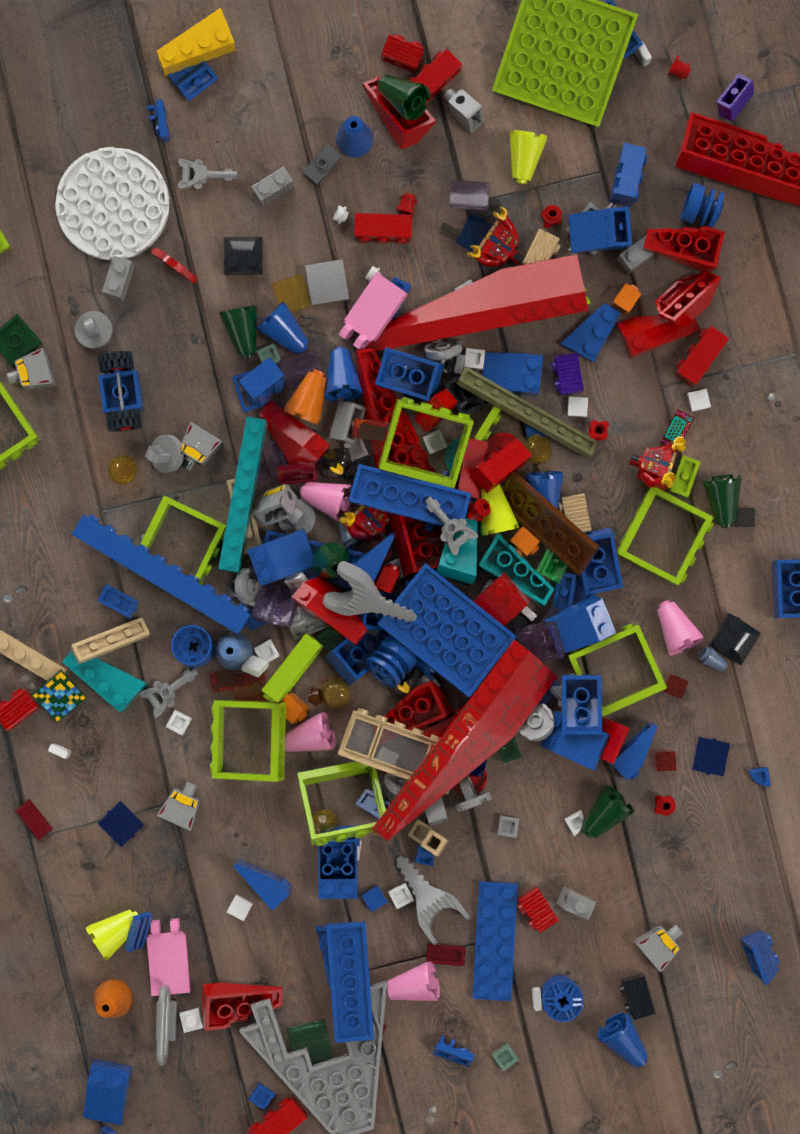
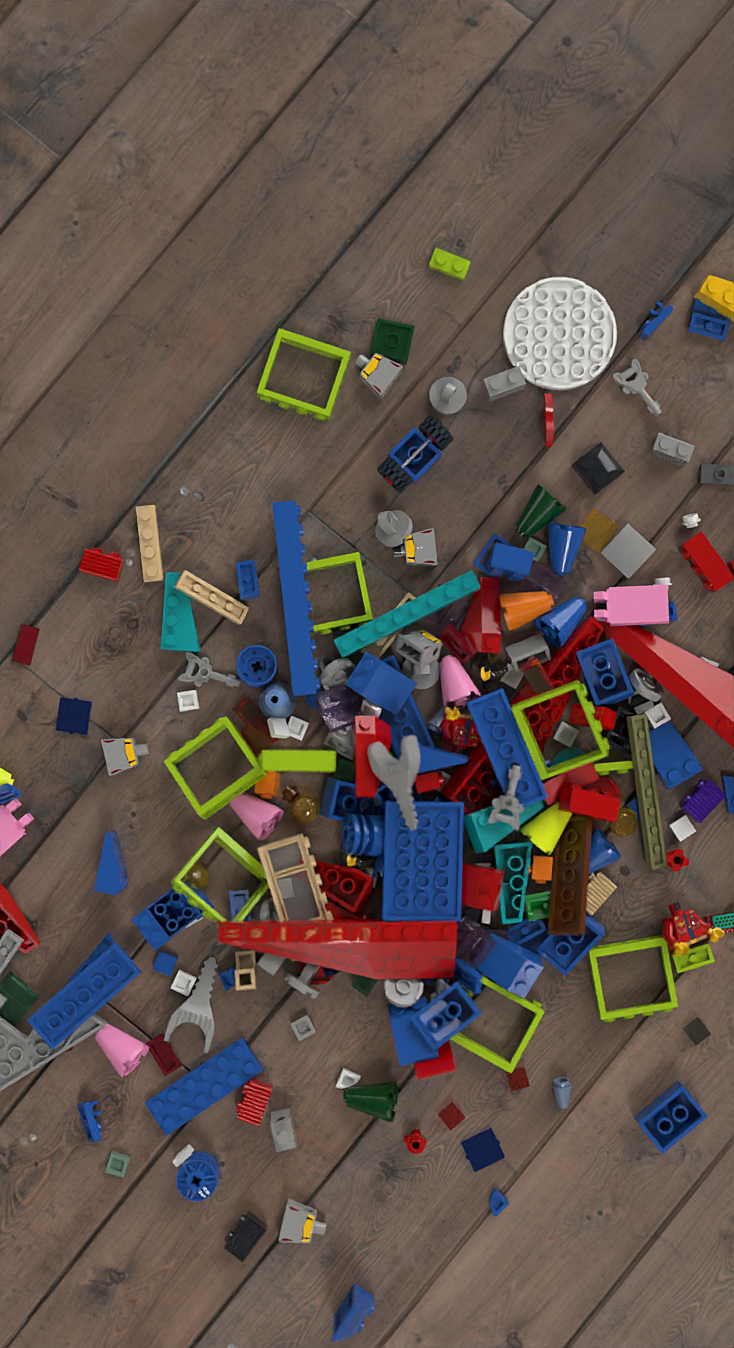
camera: 55 degrees right, 0 degrees up
(59, 695) = (137, 590): tile -> none
(59, 750) = (94, 624): white tile -> none
(122, 469) = (354, 503): clear yellow hair -> none
(239, 907) = (78, 861): white tile -> none
(328, 556) = (408, 722): dark green cone -> none
(478, 510) = (539, 812): red brick -> none
(562, 661) = (467, 976): none -> blue tile
(623, 1039) = (202, 1250): blue cone -> none
(634, 753) = (440, 1087): blue slope -> none
(677, 628) = (565, 1045): bright pink cone -> none
(723, 497) = (700, 1002): dark green cone -> none
(734, 638) = (592, 1097): black slope -> none

